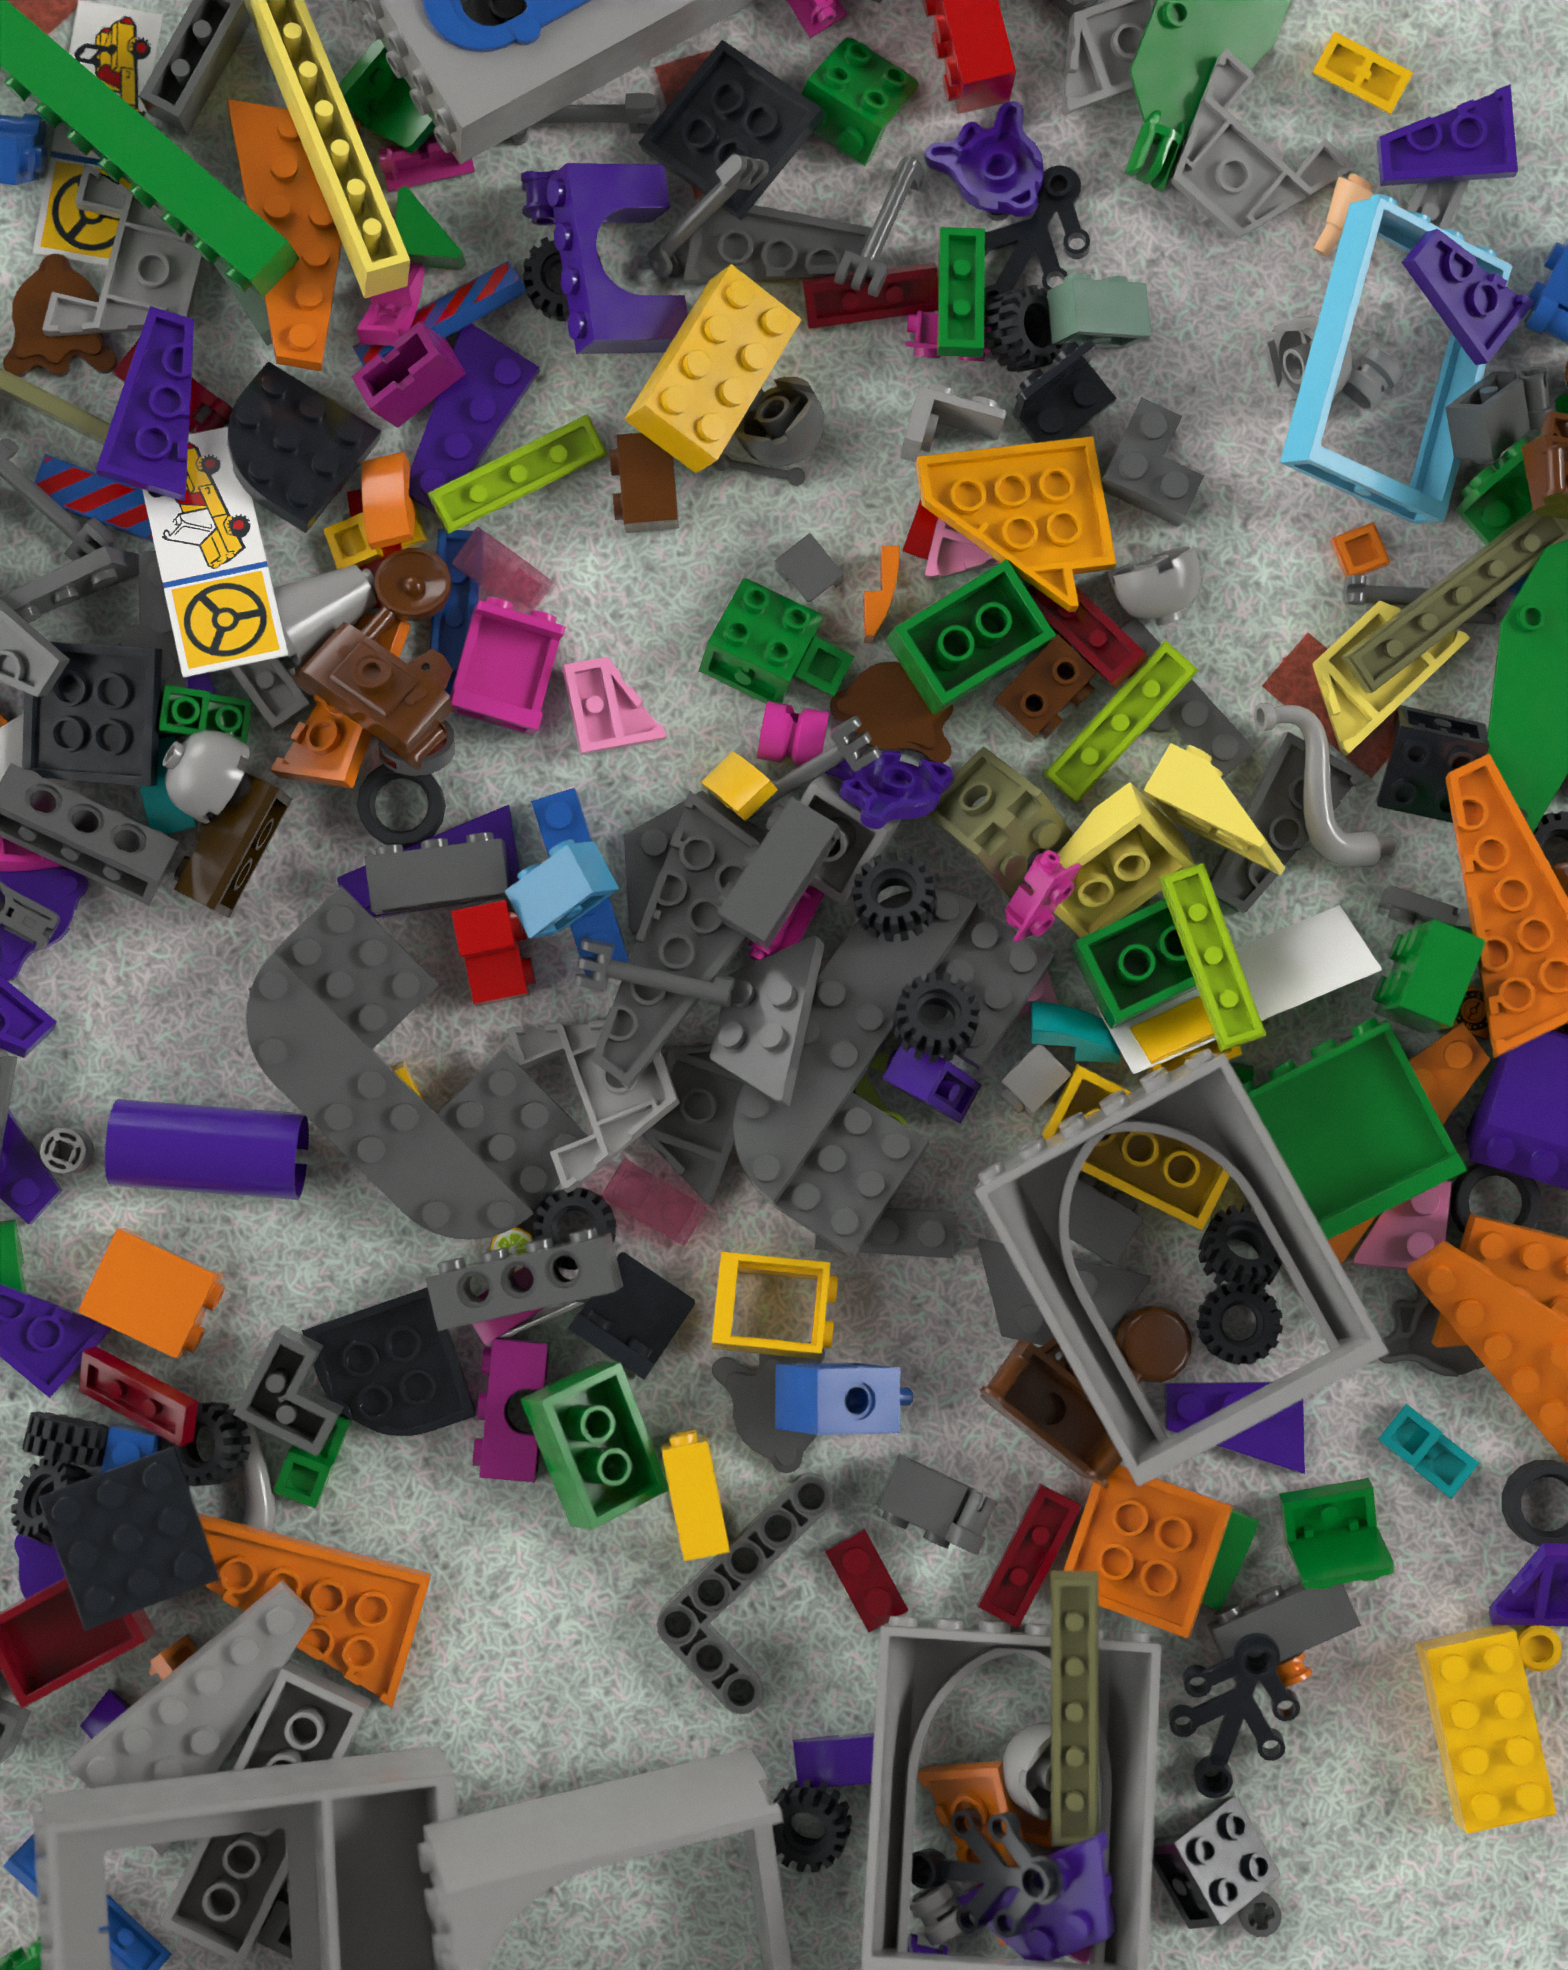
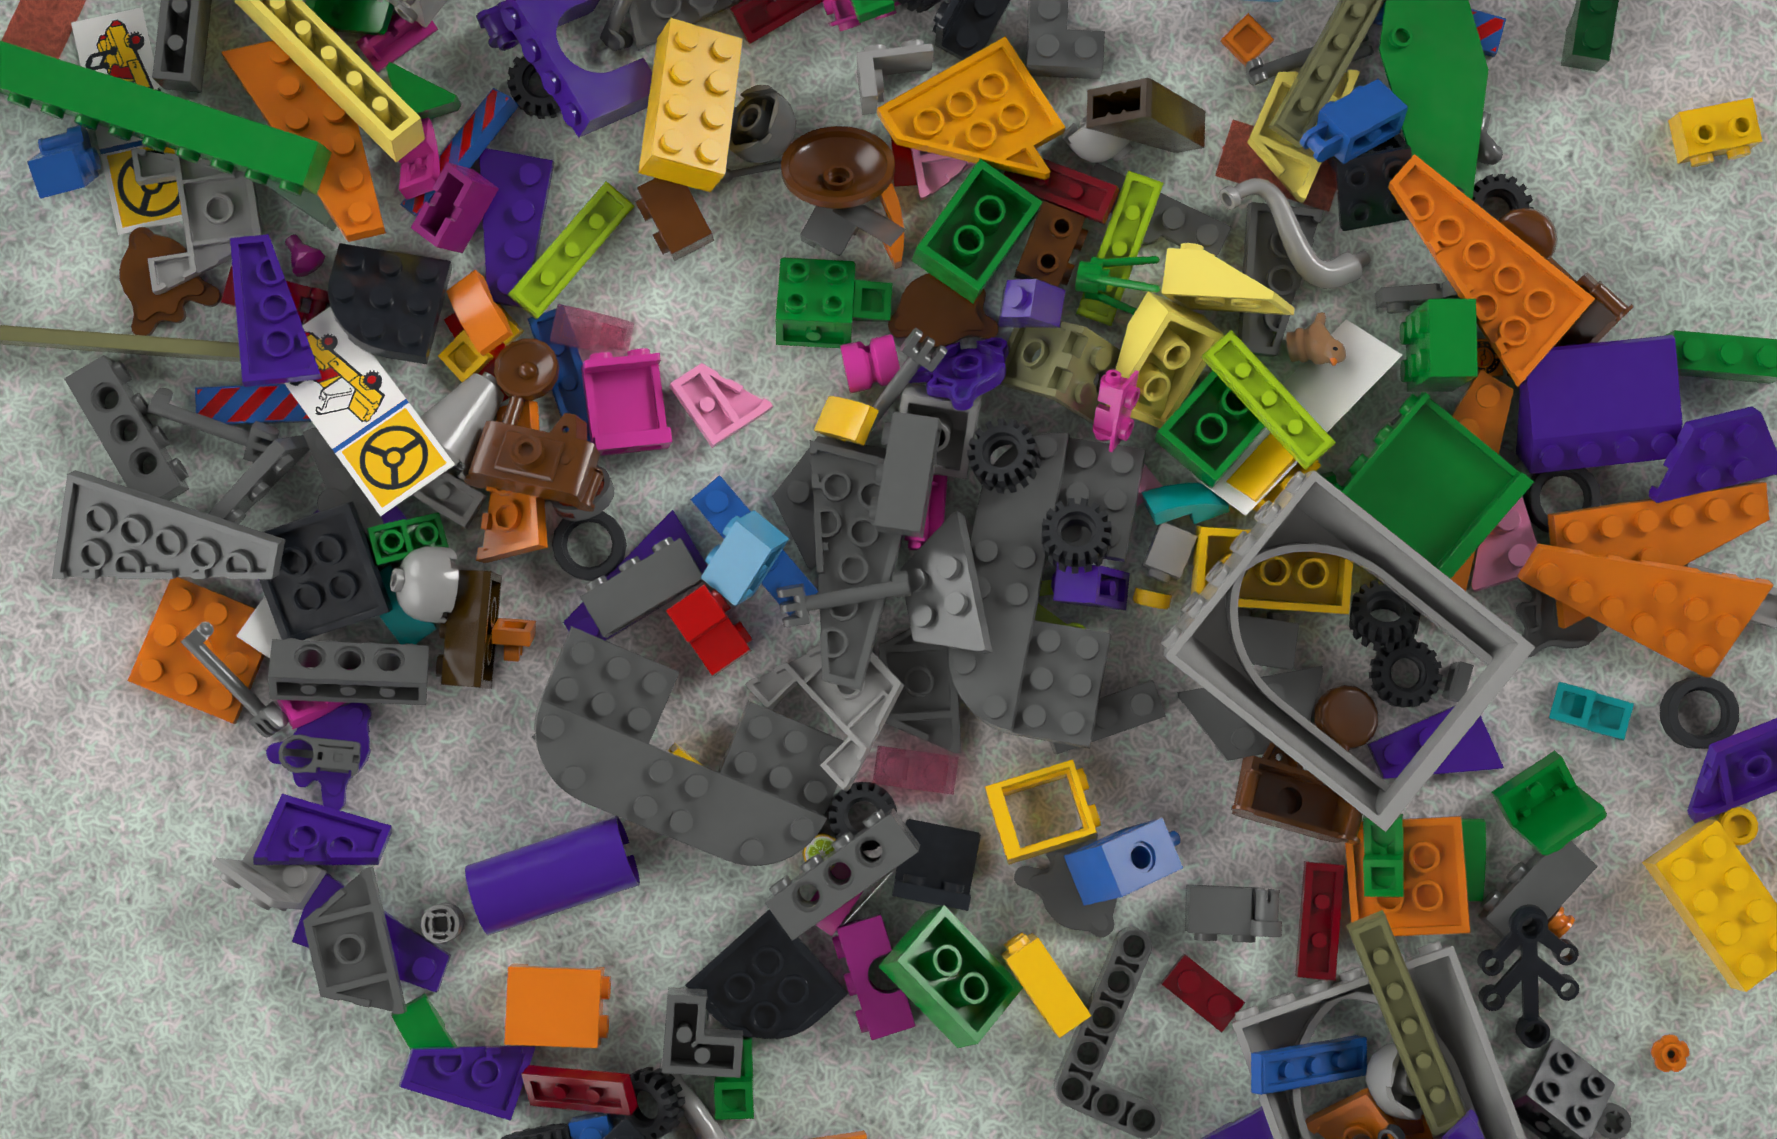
camera: 25 degrees left, 0 degrees up
(223, 361) = (304, 258): none -> magenta rock
(277, 870) = (513, 635): none -> orange tile
(847, 504) = (837, 167): none -> reddish brown dish
(856, 576) = (872, 223): none -> dark grey sticker
(947, 1707) = (1308, 1064): none -> blue tile
(993, 1122) = (1152, 598): none -> yellow tile
(996, 743) = (1031, 304): none -> dark purple slope
(1077, 743) = (1094, 278): none -> green plant
(1127, 1517) = (1383, 859): none -> green slope
(1210, 587) = (1147, 115): none -> dark brown slope
(1292, 917) = (1315, 344): none -> medium nougat animal
(1293, 1355) = (1457, 681): none -> dark grey tile
(1353, 1855) = (1660, 1049): none -> orange plate
(1439, 692) = (1355, 123): none -> blue brick

